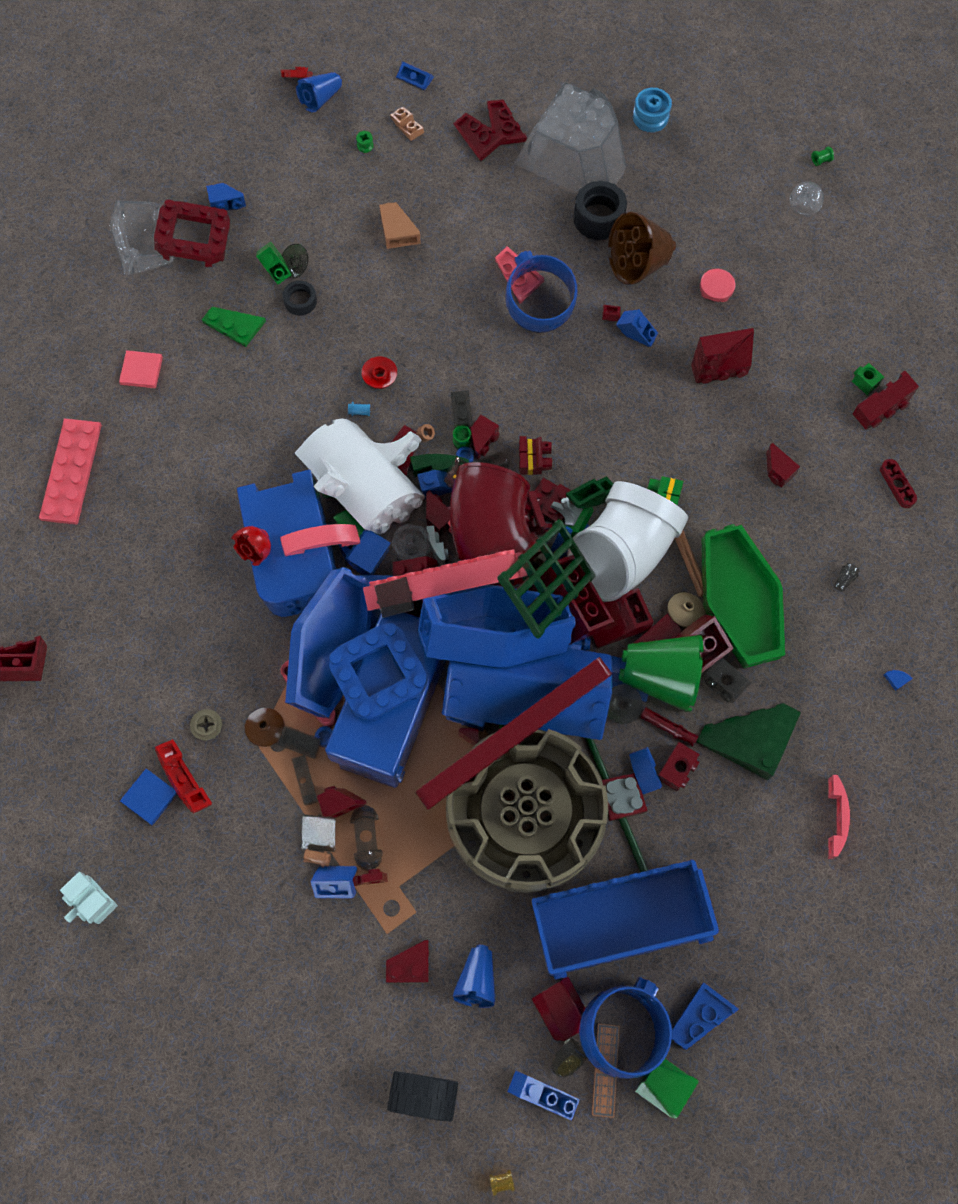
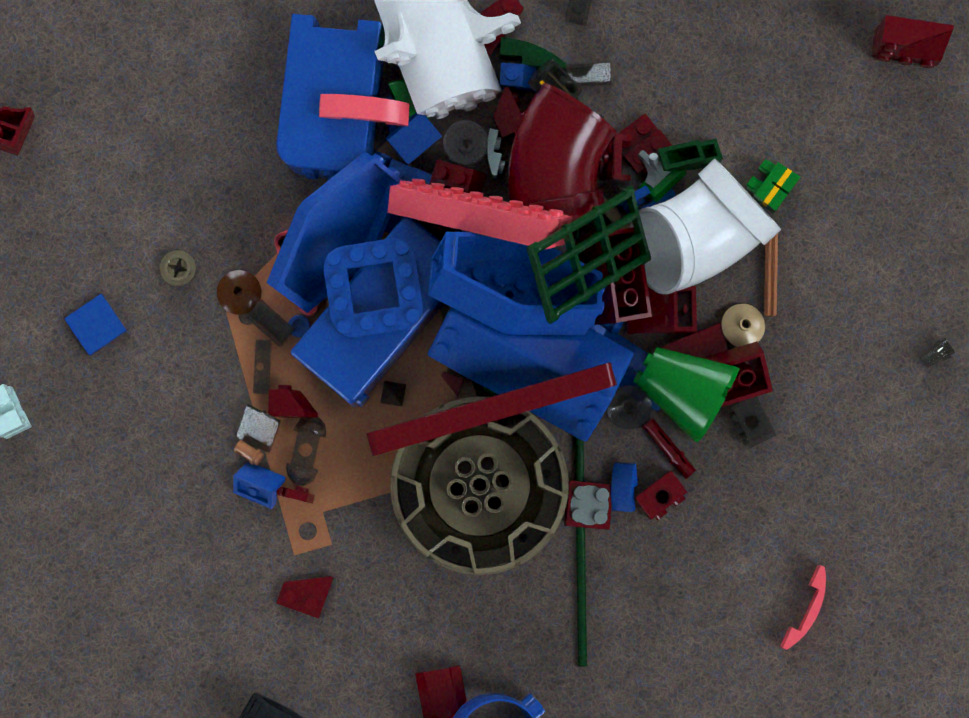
camera: 25 degrees right, 15 degrees up
(181, 778) = (134, 317): red slope -> none
(252, 544) = (288, 91): red cylinder -> none
(394, 597) = (419, 212): clear smoke piece -> none
(423, 764) = (393, 393): none -> clear smoke slope
(426, 427) = (524, 10): nougat bush -> none
(461, 433) = (571, 27): green wheel -> none
(466, 452) = (567, 53): blue tile -> none
(477, 979) = (368, 634): blue cone -> none
(482, 435) = (595, 36): dark red slope -> none
(531, 456) = (640, 83): dark red hips -> none
(624, 918) = (535, 631): blue container -> none
(743, 595) = (809, 335): green container -> none
(753, 739) = (755, 495): dark green slope -> none
(780, 466) = (921, 197): dark red slope -> none
(897, 678) = (941, 486): blue tile -> none

